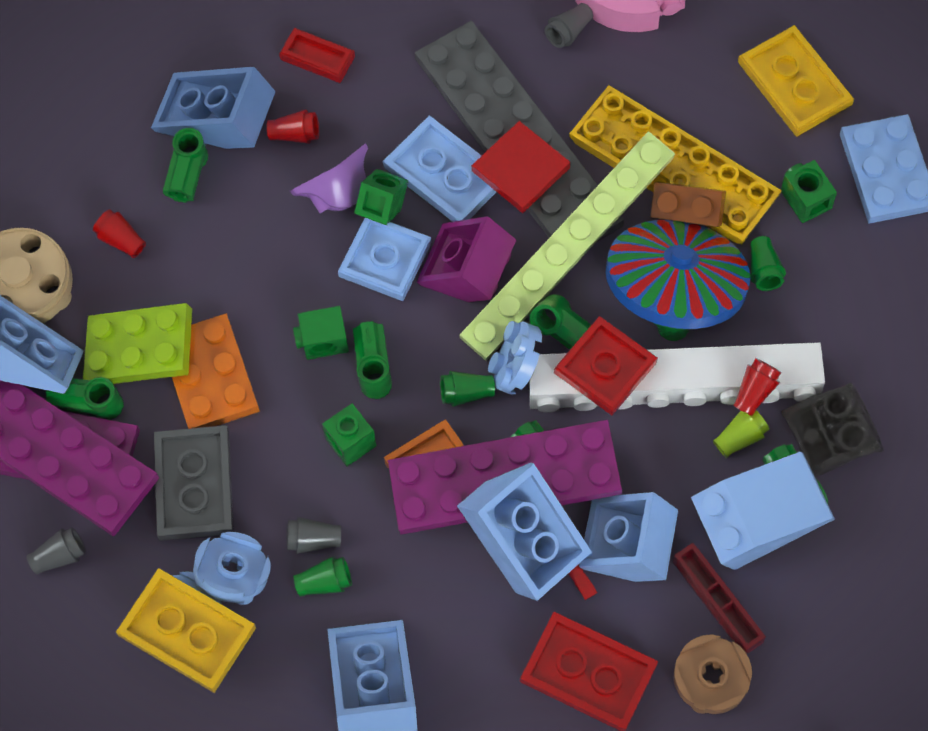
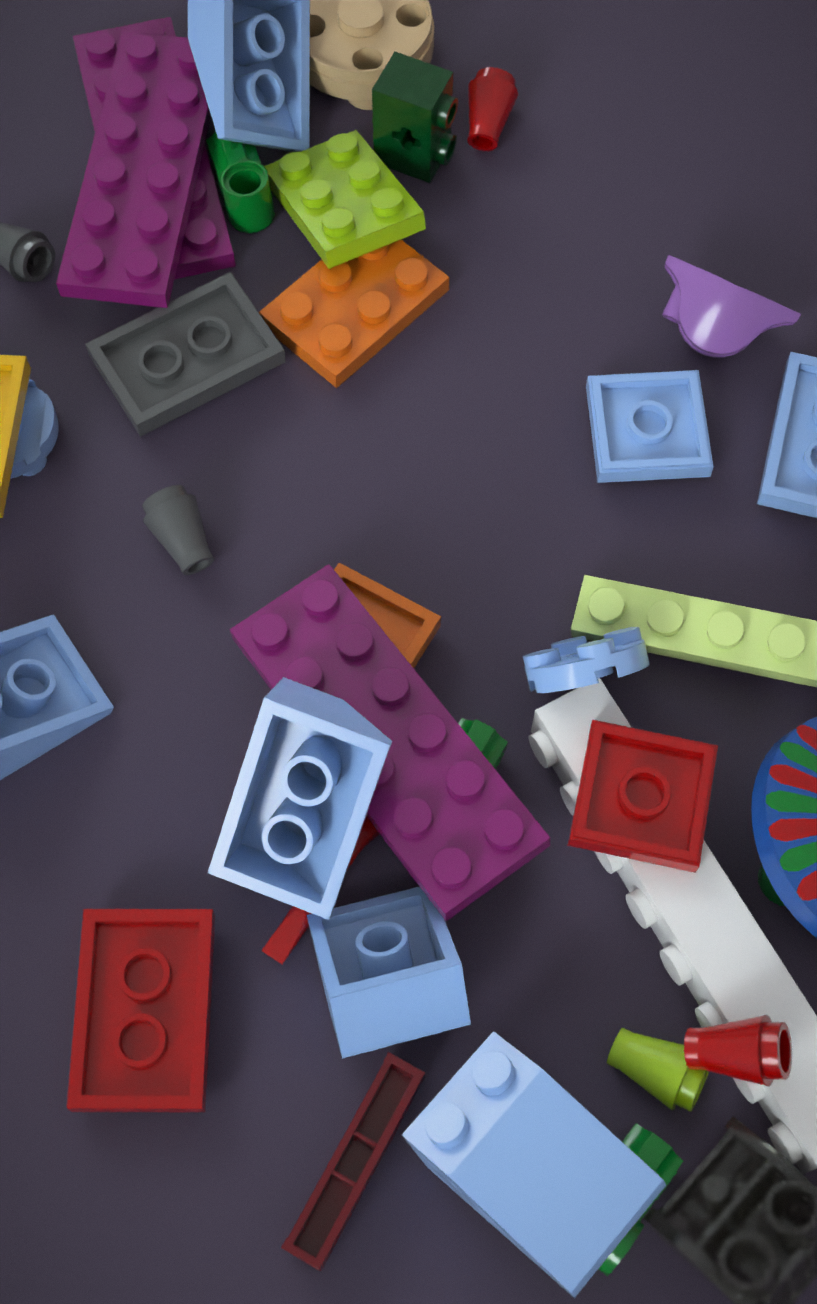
camera: 60 degrees right, 0 degrees up
(113, 276) = (414, 116): none -> dark green brick
(185, 167) = (643, 130): green piece -> none
(219, 103) = (740, 128): medium blue slope -> none
(226, 585) = (61, 475): light blue plate -> none
(296, 127) = (773, 230): red cone -> none
(321, 333) = (485, 400): green brick -> none
(326, 577) = (127, 577): green cone -> none
(349, 434) = (349, 502): green brick -> none
(372, 359) = (482, 481): green piece -> none
(381, 196) = (732, 372): green brick -> none
(465, 387) = (506, 620): green cone -> none
(467, 259) = (710, 534): magenta slope -> none
(568, 324) = (687, 694): green piece -> none
(720, 654) = (183, 1210): medium nougat plate -> none

